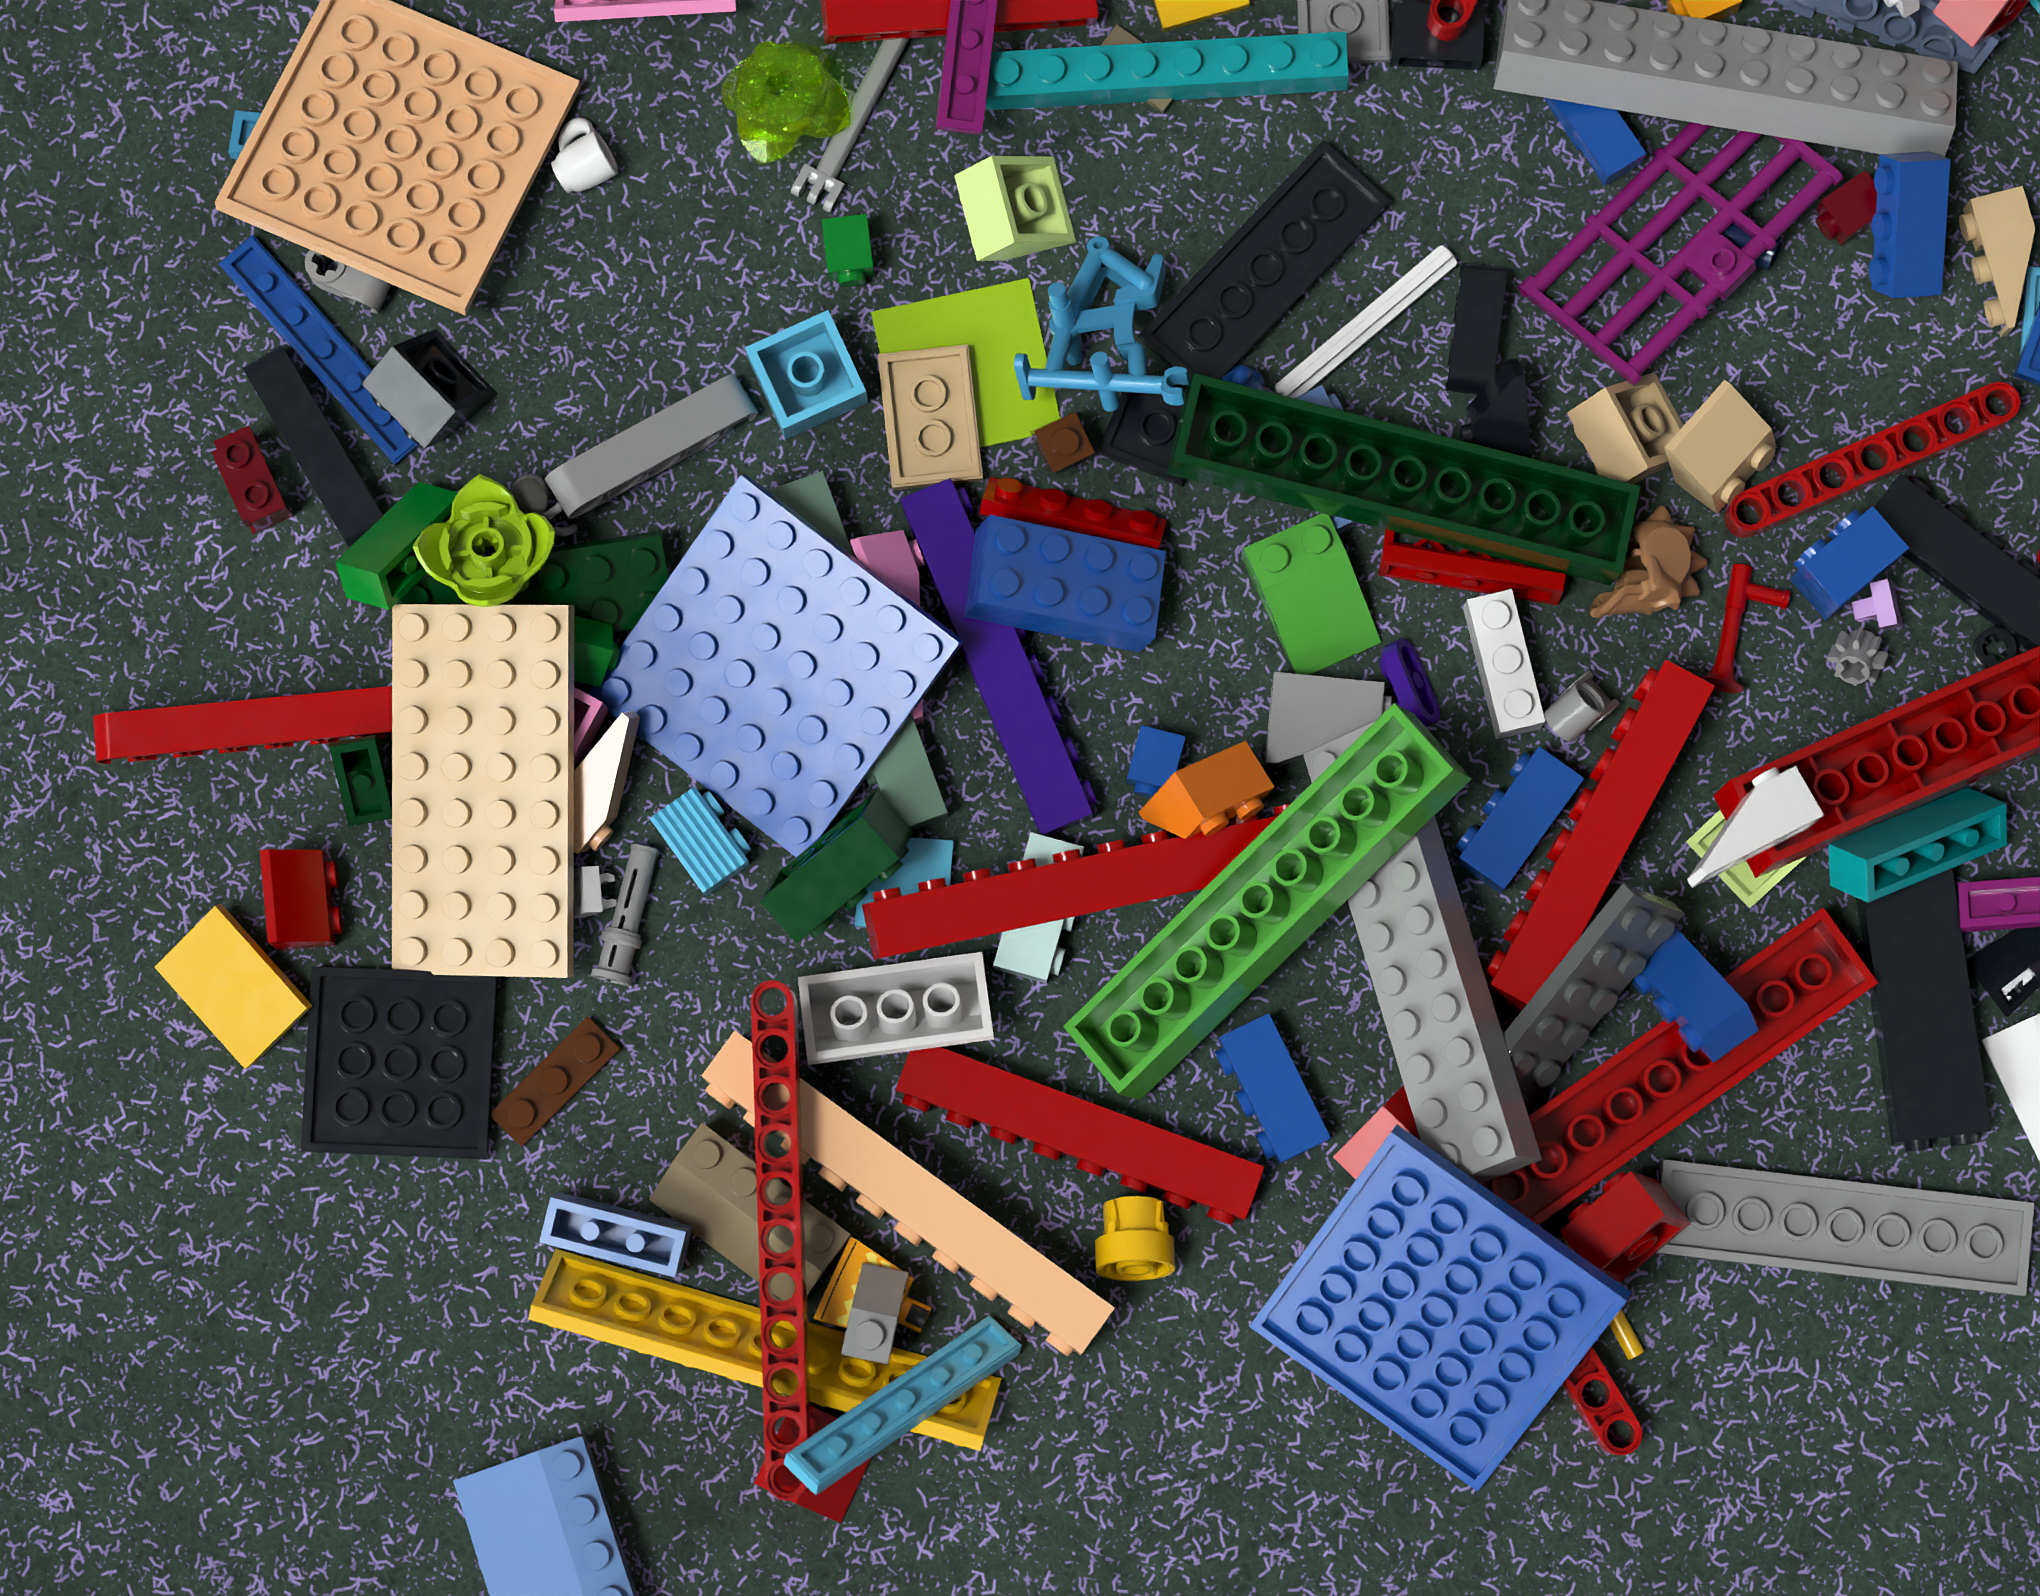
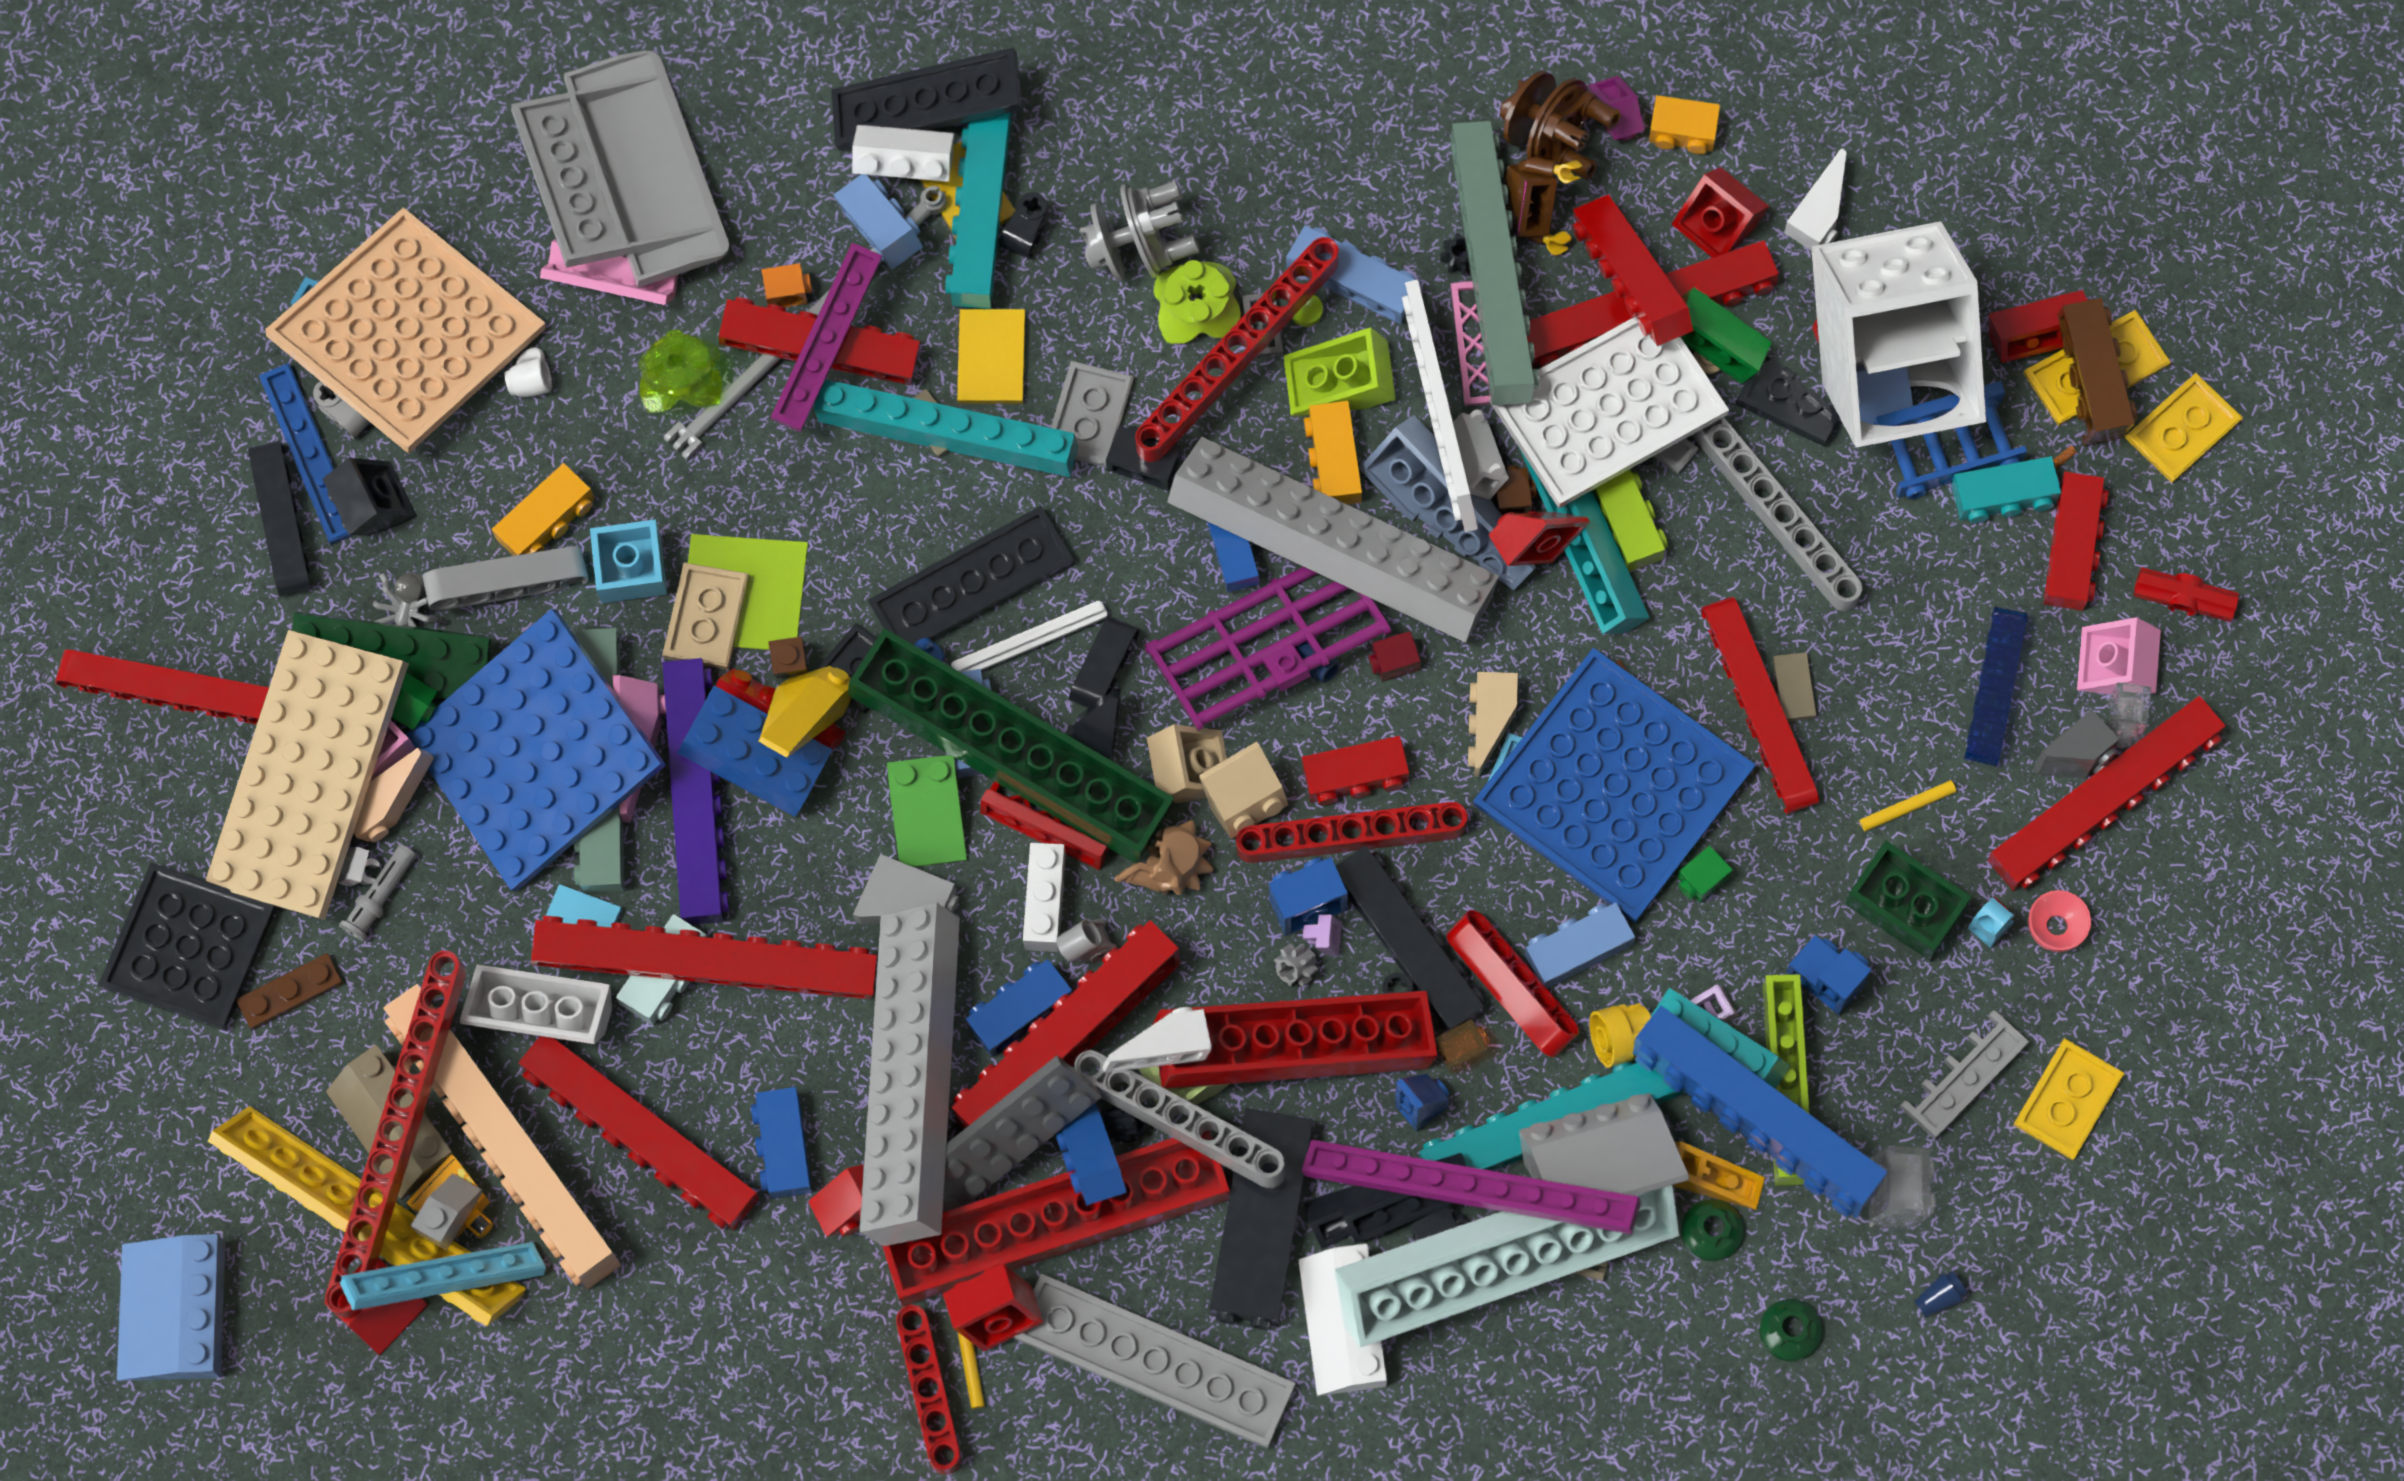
camera: 20 degrees right, 10 degrees down
(233, 986) = (92, 860): yellow tile -> none
(249, 480) = (225, 523): dark red window -> none
(300, 898) = (156, 812): red slope -> none
(362, 779) = (229, 744): dark green slope -> none
(383, 560) = (311, 594): green brick -> none
(483, 517) = (371, 590): lime brick -> none
(616, 1234) = (292, 1105): medium blue brick -> none
(670, 343) = (544, 513): none -> light orange brick
(701, 841) = (447, 856): medium azure brick -> none
(838, 868) = (529, 896): dark green brick -> none
(848, 249) = (688, 486): green brick -> none
(1014, 206) = (812, 490): yellowish green slope -> none
(1072, 316) = (827, 571): dark azure piece -> none
(1110, 506) = (805, 708): none -> yellow wedge
(1134, 1240) = (648, 1217): yellow piece -> none
(1154, 760) = (778, 893): blue brick -> none
(1210, 793) = (803, 919): orange slope -> none
(1267, 902) = (812, 1004): bright green brick -> none
(1409, 680) = (975, 892): dark purple plate -> none
(1439, 1308) = (838, 1321): plate -> none
(1708, 927) = (1123, 1125): none -> black gear
(1738, 593) = (1230, 896): red piece -> none
(1812, 904) = (1190, 1131): none -> light grey beam
(1850, 376) = (1355, 770): none -> red brick
(1910, 224) = (1426, 675): blue brick -> none
(1917, 844) = (1288, 1102): teal brick -> none

